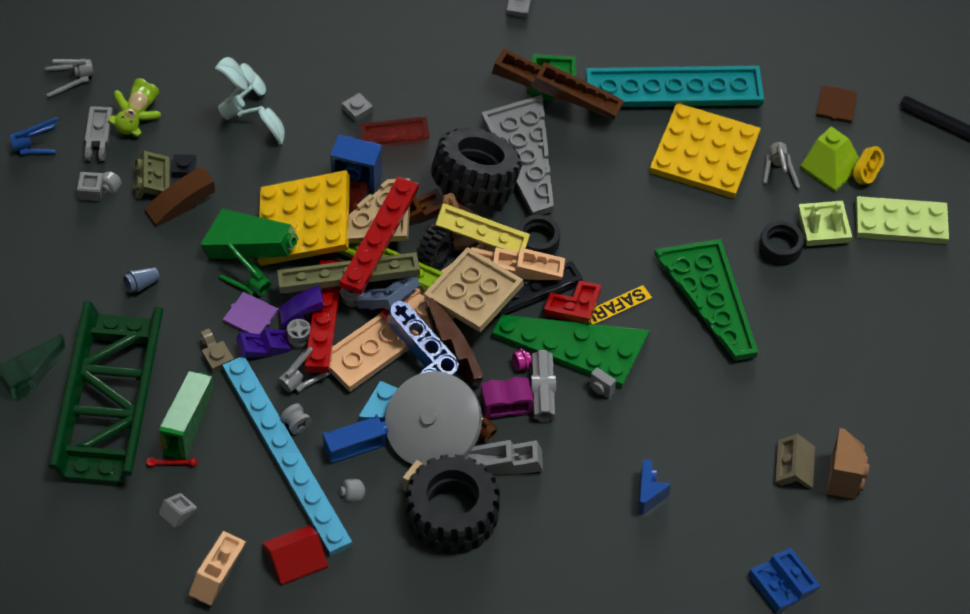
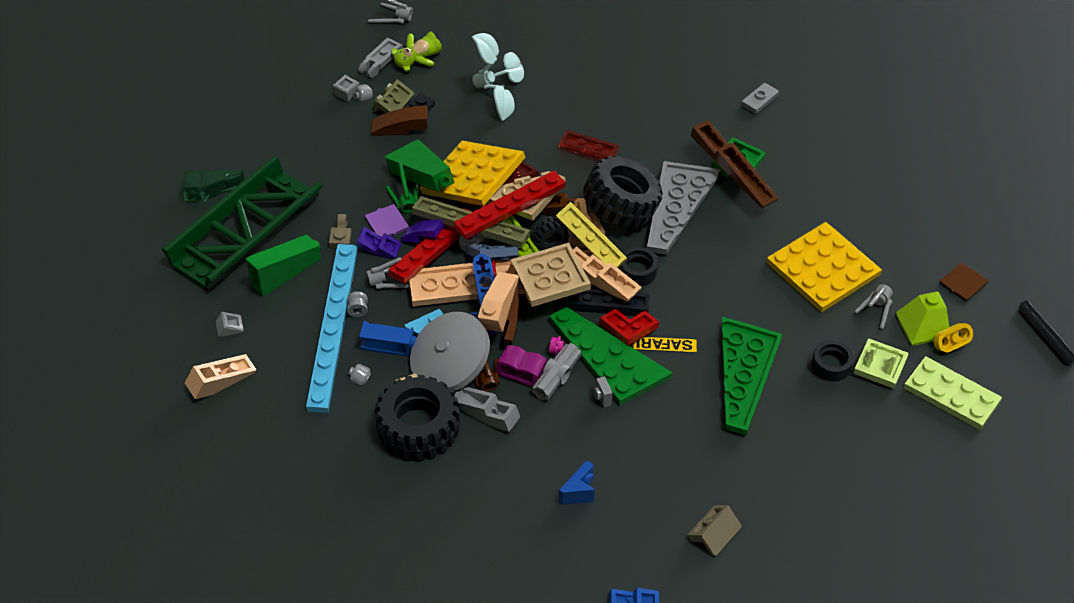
camera: 35 degrees right, 5 degrees down
(21, 139) = (325, 40): blue plant -> none
(139, 279) = (329, 162): sand blue cone -> none
(151, 462) = (238, 285): red hinge -> none
(296, 555) = (281, 397): red slope -> none
(301, 328) = (405, 245): light grey wheel -> none
(357, 107) = (576, 119): light grey plate -> none
(359, 158) = (539, 149): blue brick -> none
(447, 342) = (498, 301): none -> light nougat slope
(680, 85) = (839, 211): teal plate -> none
(847, 466) = (751, 551): medium nougat slope -> none

